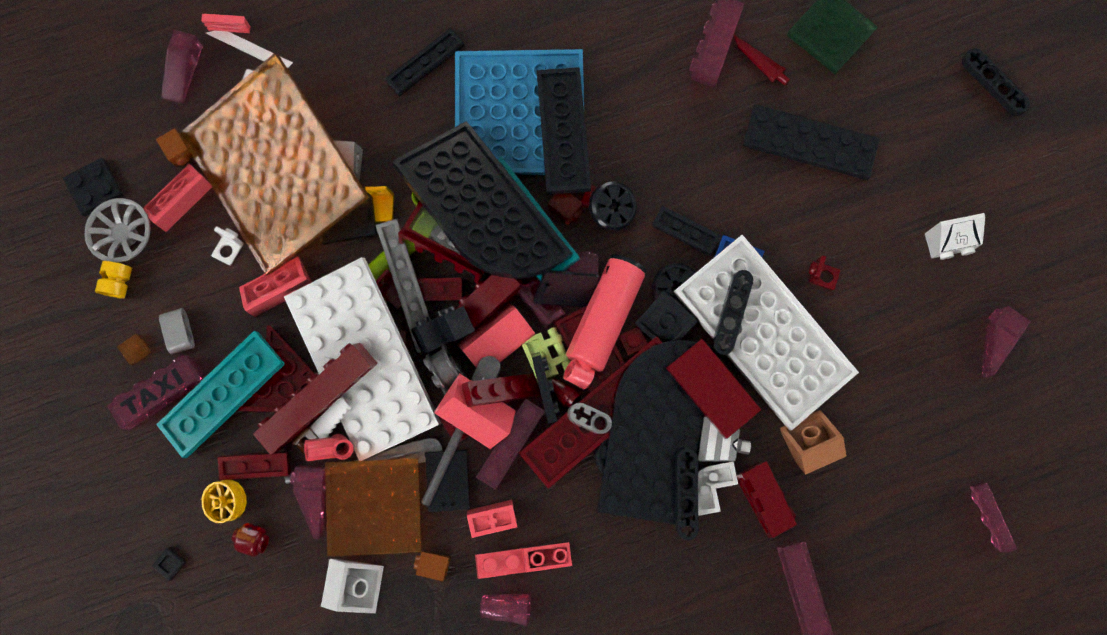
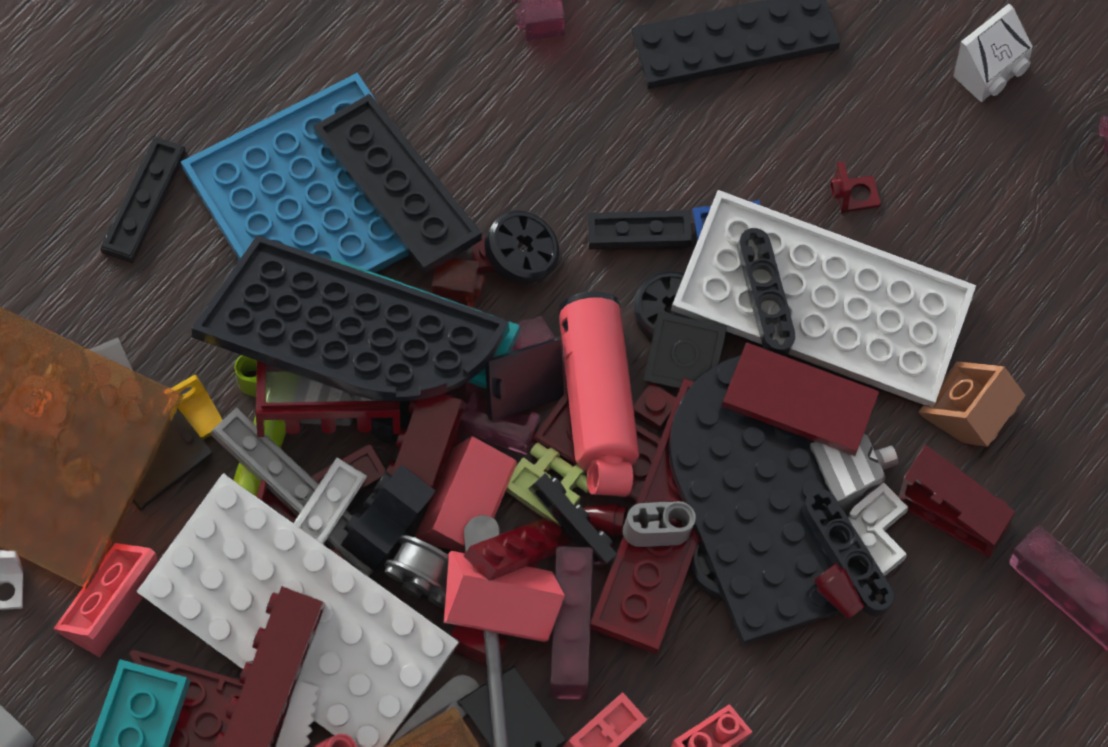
camera: 30 degrees left, 15 degrees down
(416, 301) = (330, 500): none -> white tile
(667, 515) = (839, 590): none -> dark red cone

